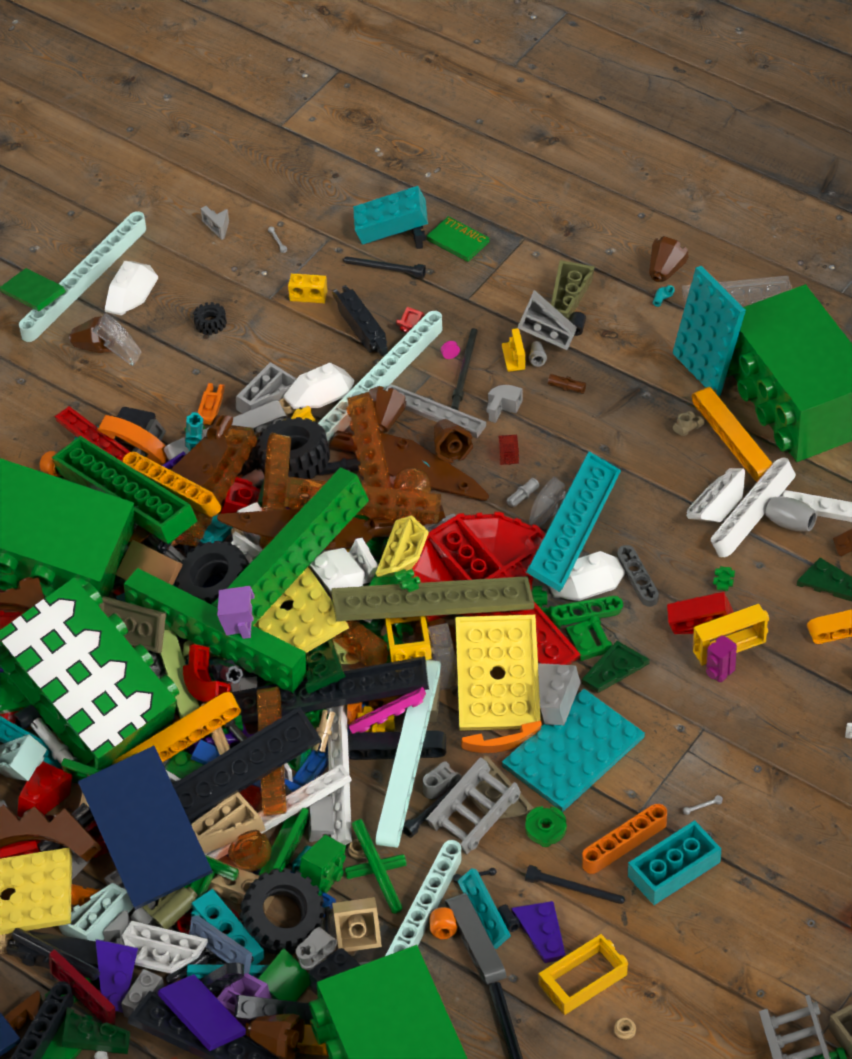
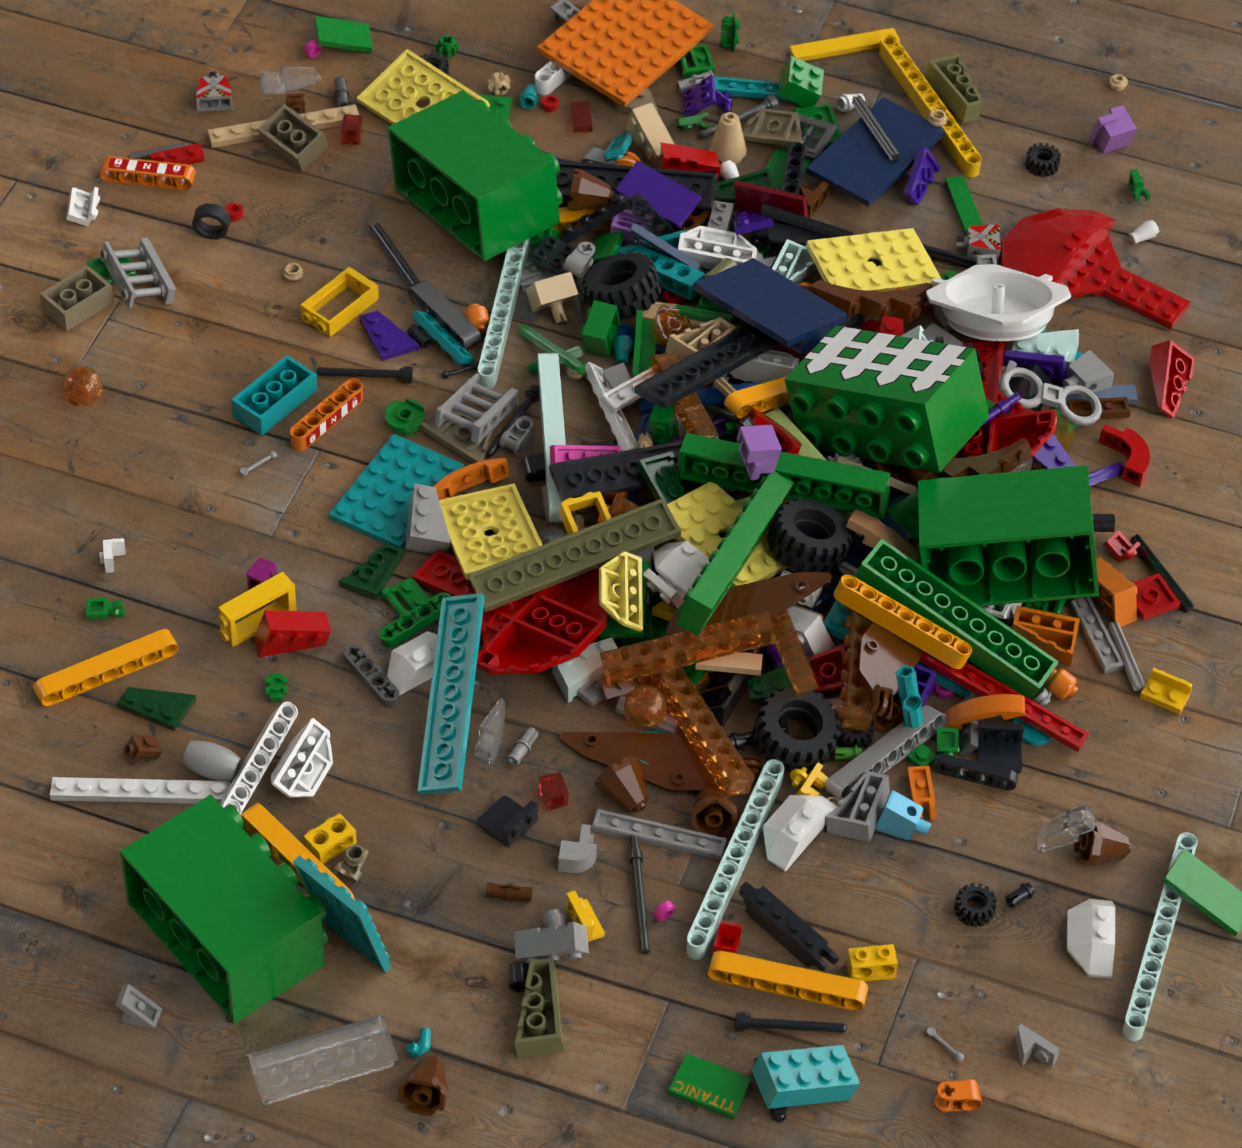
camera: 160 degrees right, 0 degrees up
(162, 410) = (998, 778): none -> black beam
(172, 320) = (1024, 892): none -> black pin
(173, 431) = (947, 741): none -> green bracket
(236, 376) = (902, 817): none -> medium azure torso
(284, 201) = (960, 1094): none -> orange piece
(375, 289) = (788, 980): none -> light orange beam
(406, 580) = (602, 551): green piece -> none
(551, 433) = (508, 820): none -> black bracket
(702, 442) = (326, 843): none -> yellow brick

